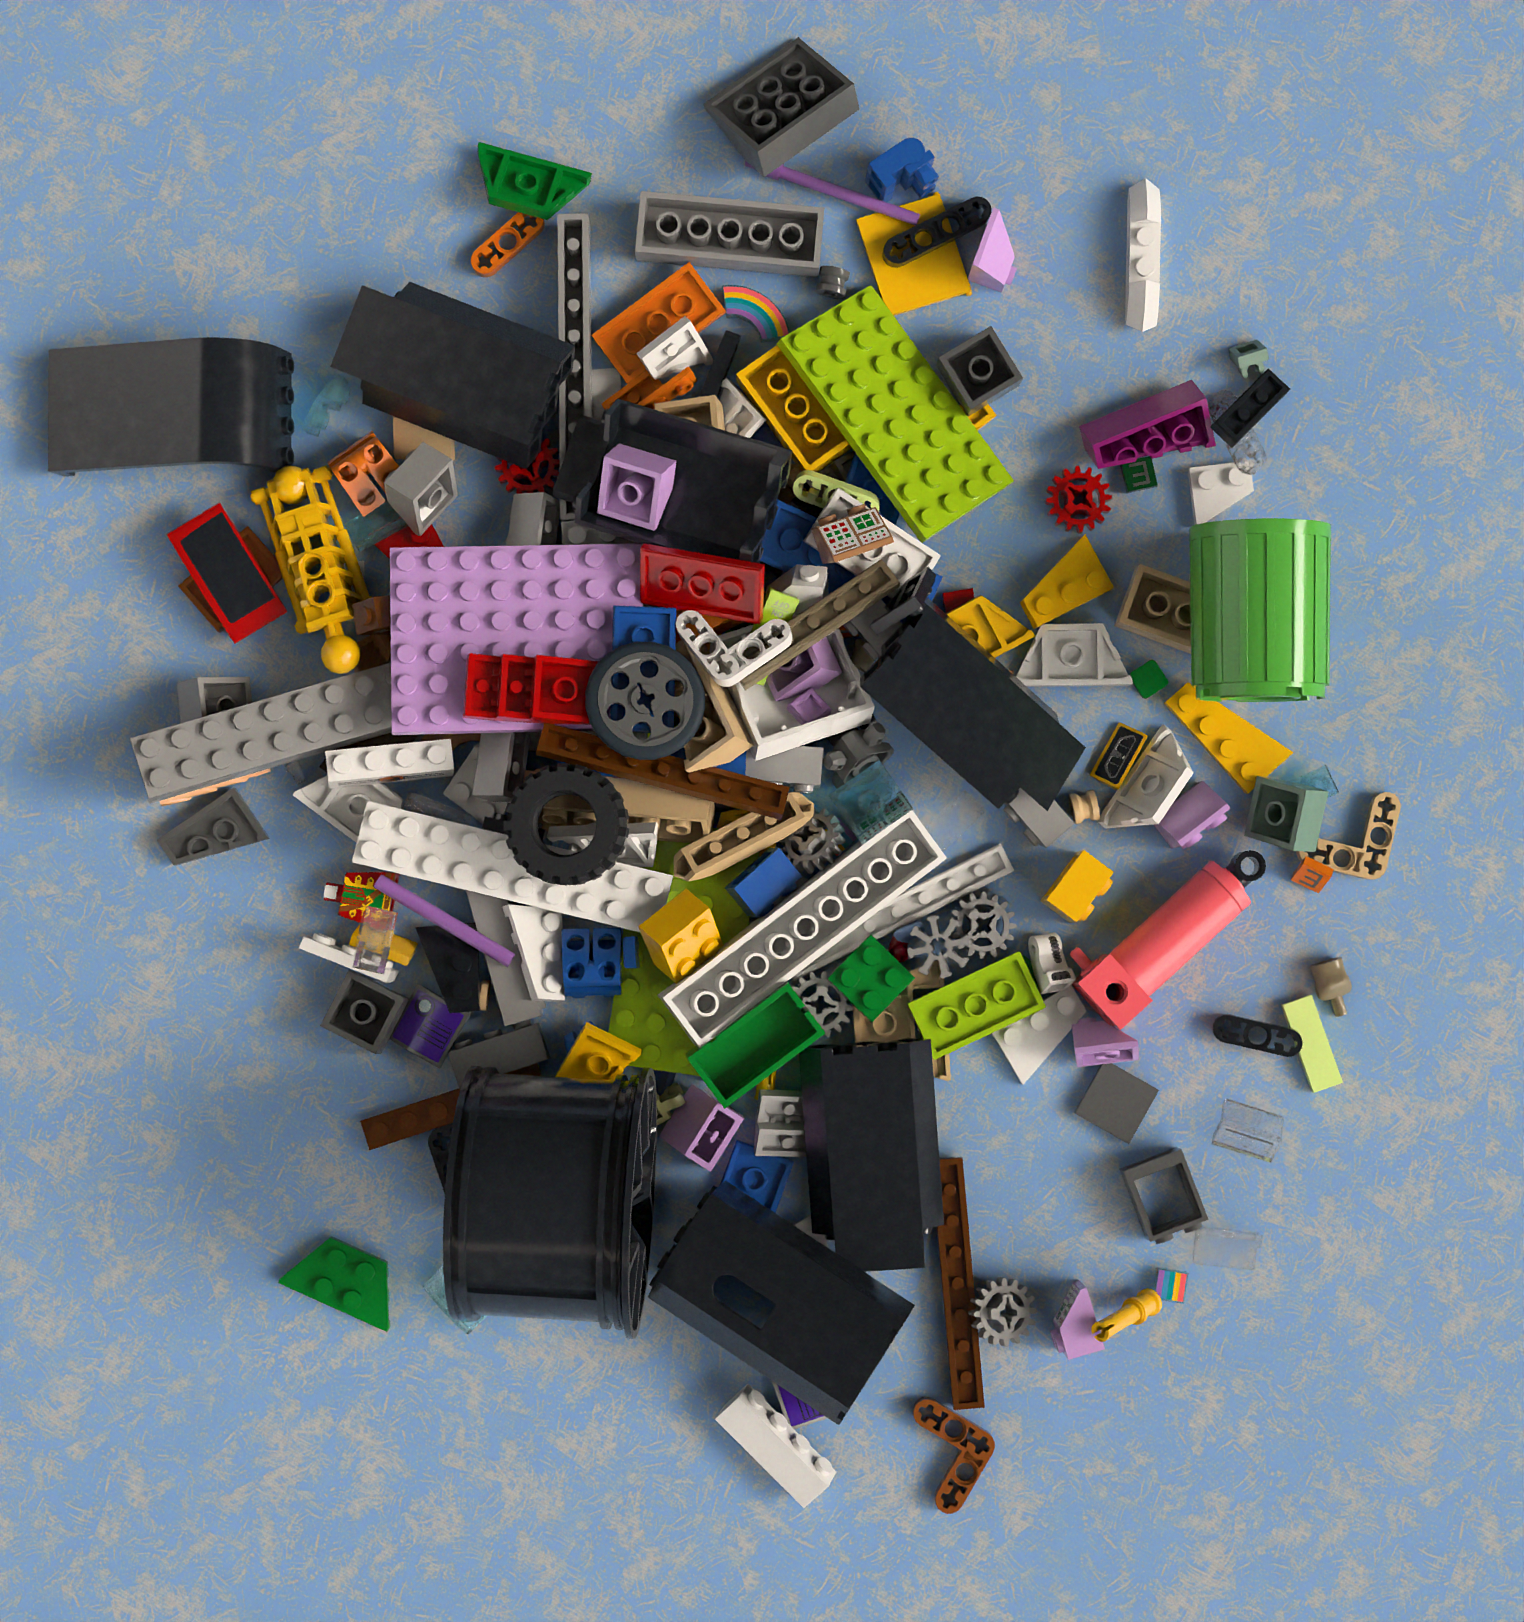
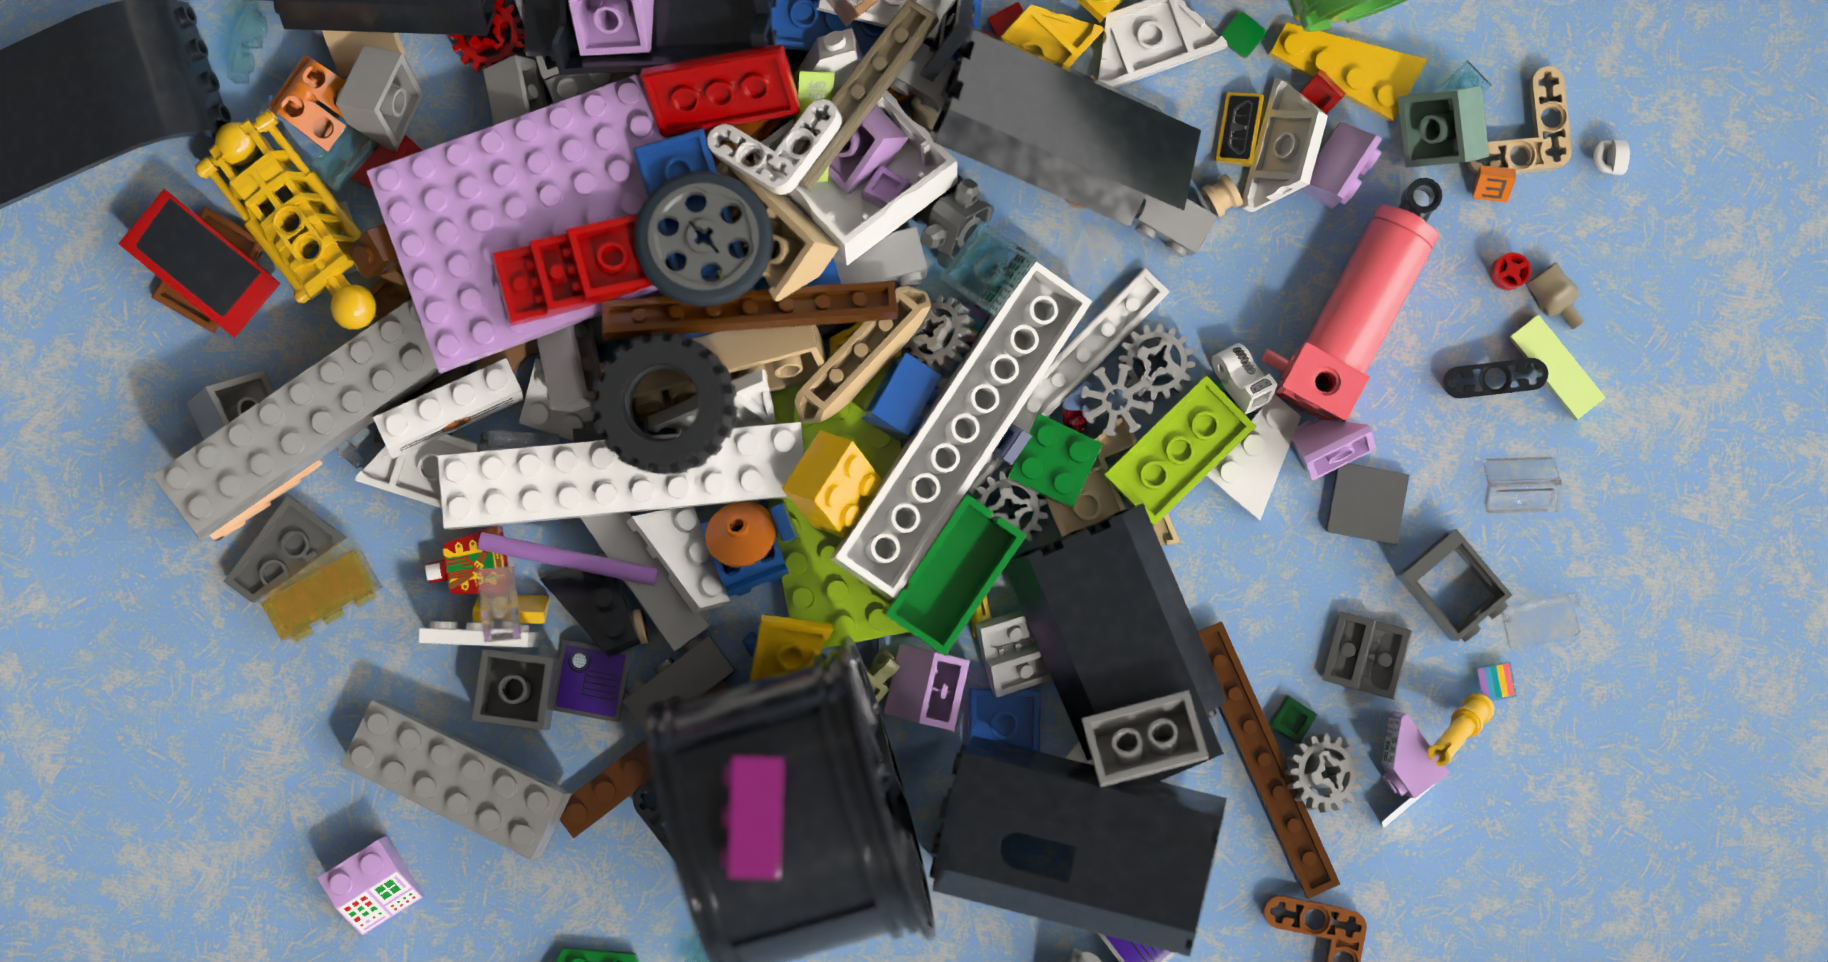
camera: 15 degrees left, 0 degrees up
(190, 1131) = (371, 886): none -> lavender slope
(233, 880) = (322, 596): none -> clear yellow brick
(290, 1069) = (456, 779): none -> light grey brick
(521, 1194) = (754, 817): none -> magenta brick
(596, 960) = (743, 546): none -> orange dish
(840, 952) = (1011, 444): none -> dark blue tile
(863, 1234) = (1144, 738): none -> light grey slope
(992, 1258) = (1292, 719): none -> dark green tile
(1053, 1364) = (1403, 807): none -> white sticker
(1072, 1227) = (1367, 655): none -> dark grey slope
(1077, 887) = (1245, 283): yellow brick -> none
(1197, 750) = (1323, 92): none -> red tile
(1307, 951) = (1516, 267): none -> red wheel
(1422, 886) = (1617, 156): none -> white tile

